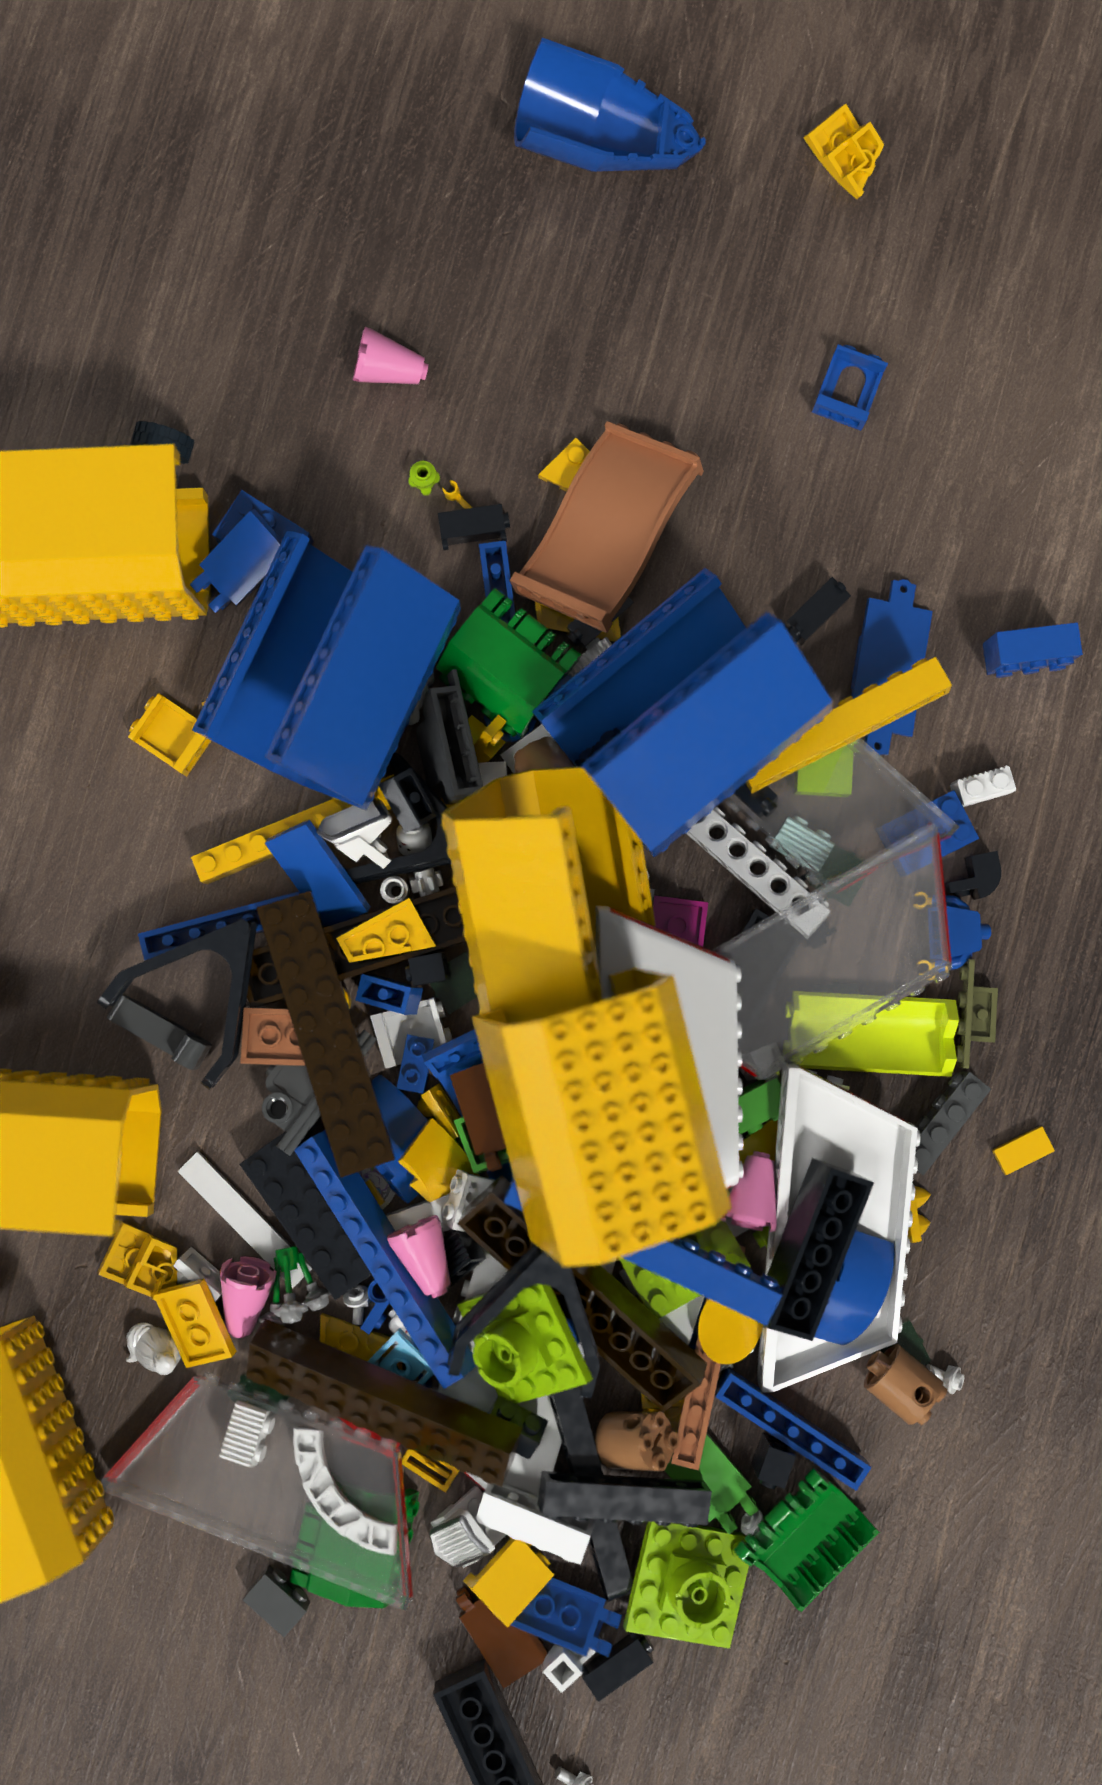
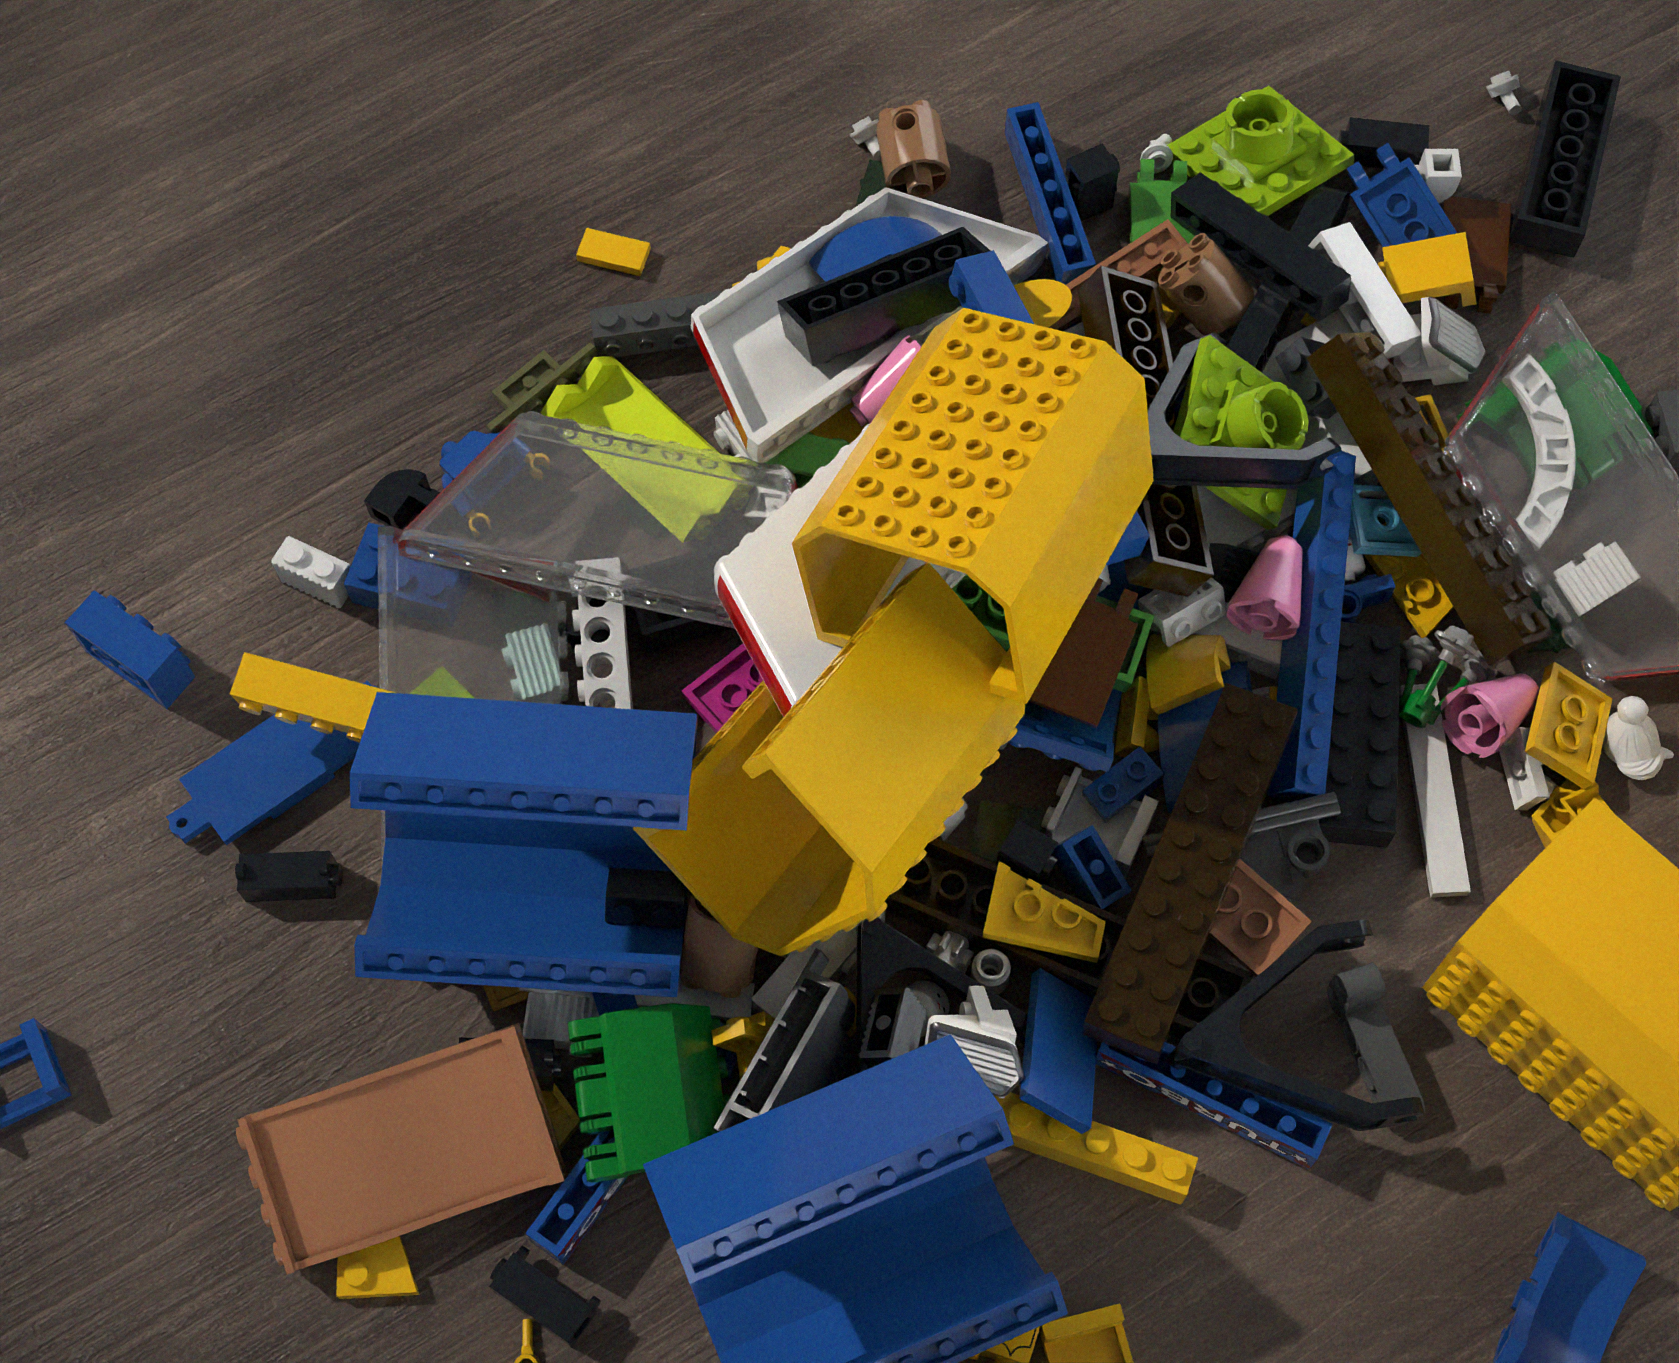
camera: 135 degrees left, 20 degrees down
(357, 1299) = (1381, 615): white plate -> none
(808, 1539) = (1117, 103): green hinge -> none

